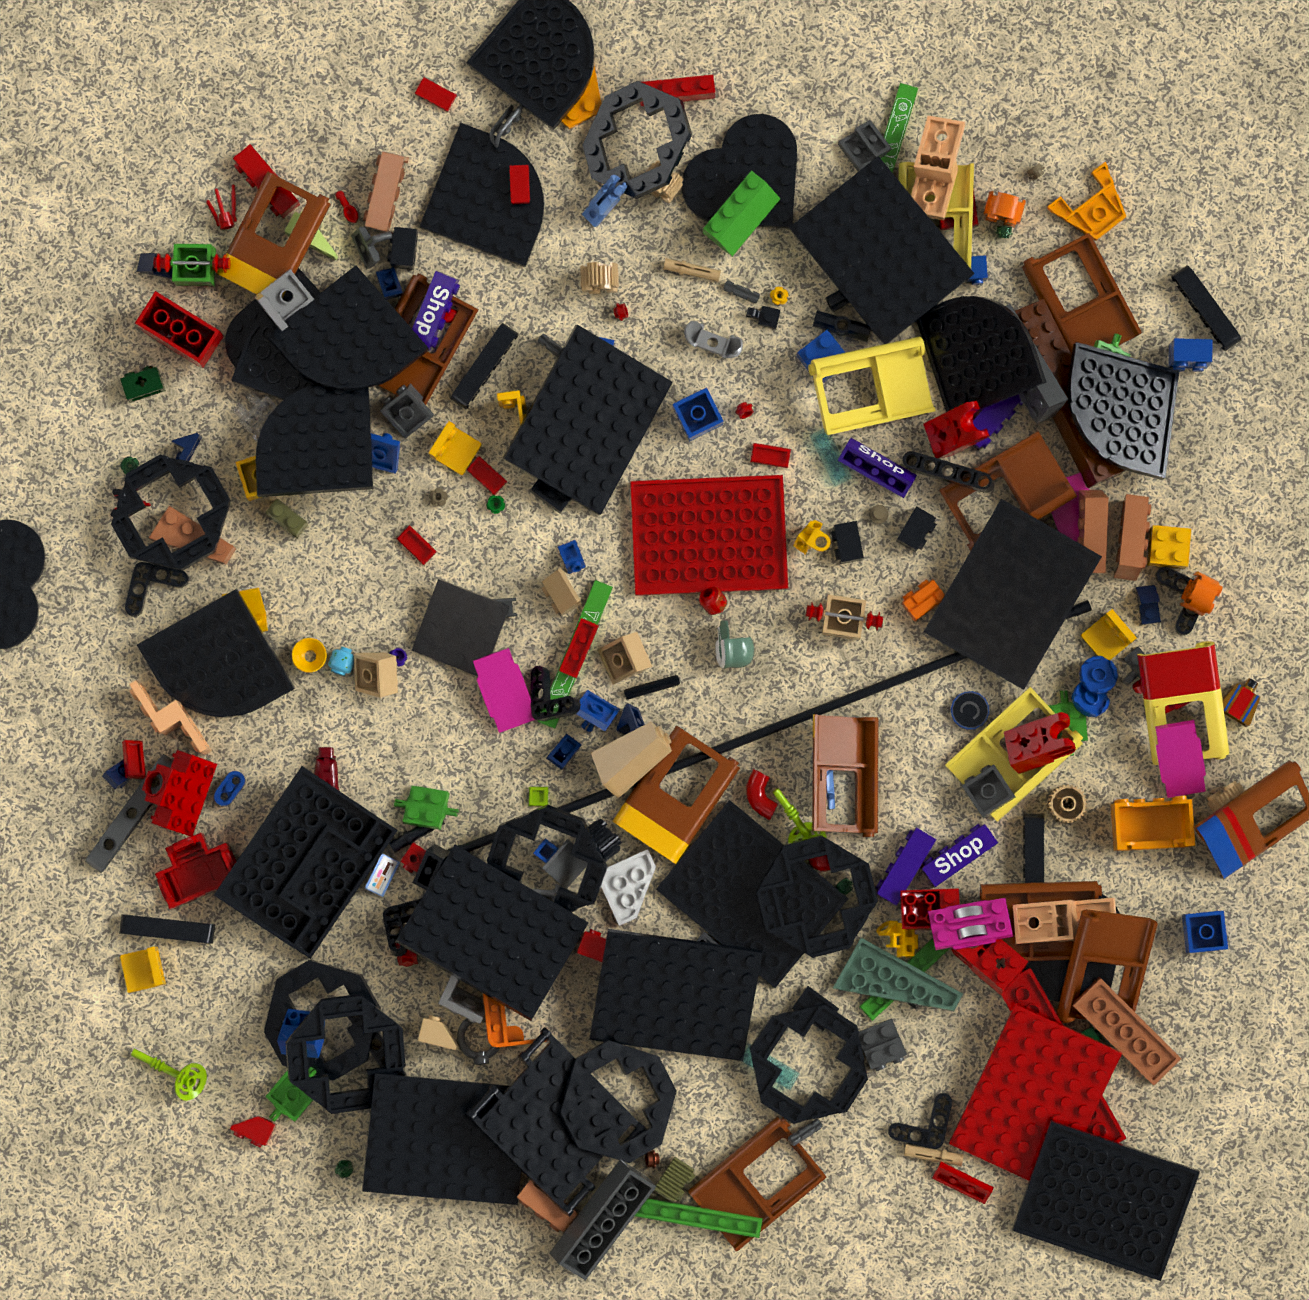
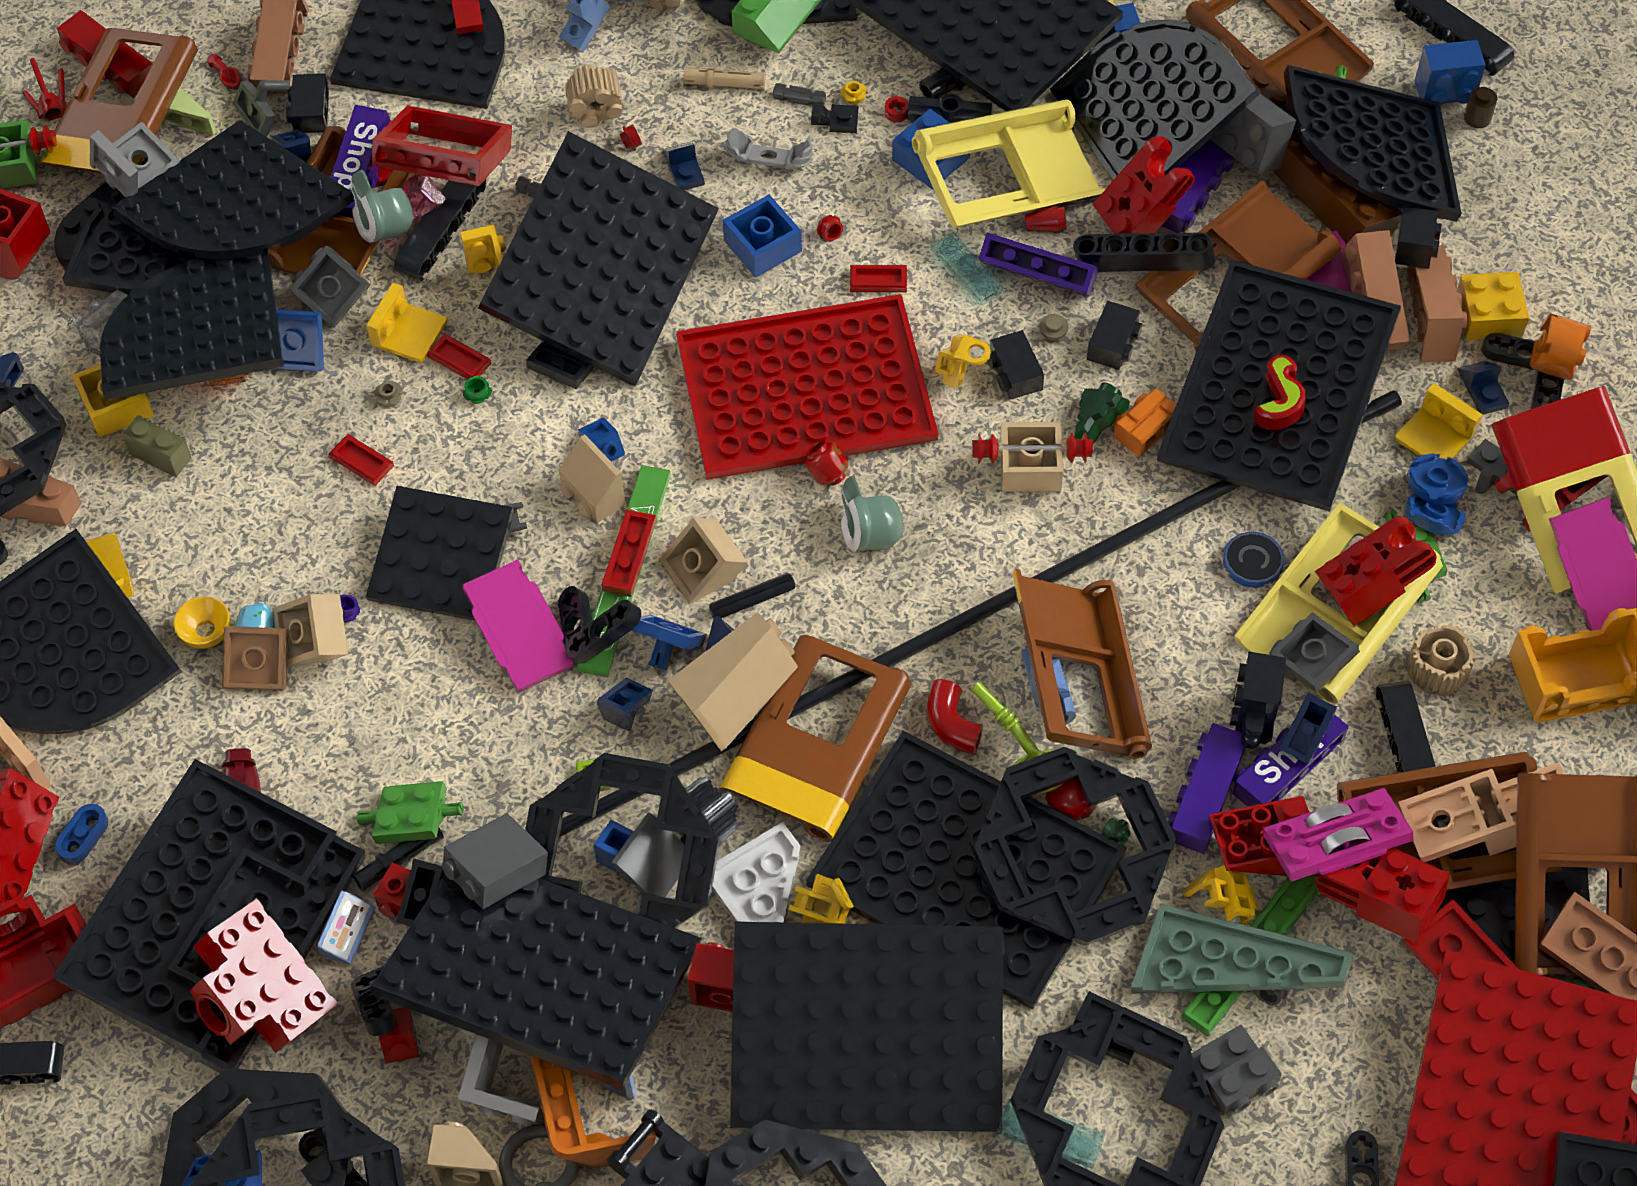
camera: 10 degrees left, 25 degrees down
(330, 914) = (257, 981): none -> piece
(340, 686) = (255, 658): none -> medium nougat tile
(445, 364) = (381, 213): none -> sand green piece
(472, 347) = (422, 194): none -> clear pink arch
(473, 862) = (494, 861): none -> dark grey brick
(482, 330) = (438, 161): none -> red window
(653, 340) = (684, 166): none -> dark blue slope
(669, 907) = (822, 900): none -> yellow piece
(810, 311) = (899, 102): none -> red bush
(891, 428) = (1047, 220): none -> red cone
(893, 589) = (1099, 410): none -> dark green rock
(947, 819) = (1257, 698): none -> black hinge
(970, 847) = (1308, 728): none -> dark blue slope
(1014, 610) = (1288, 394): none -> red animal
(1130, 493) = (1418, 237): none -> black brick
(1205, 382) = (1480, 107): none -> dark brown brick

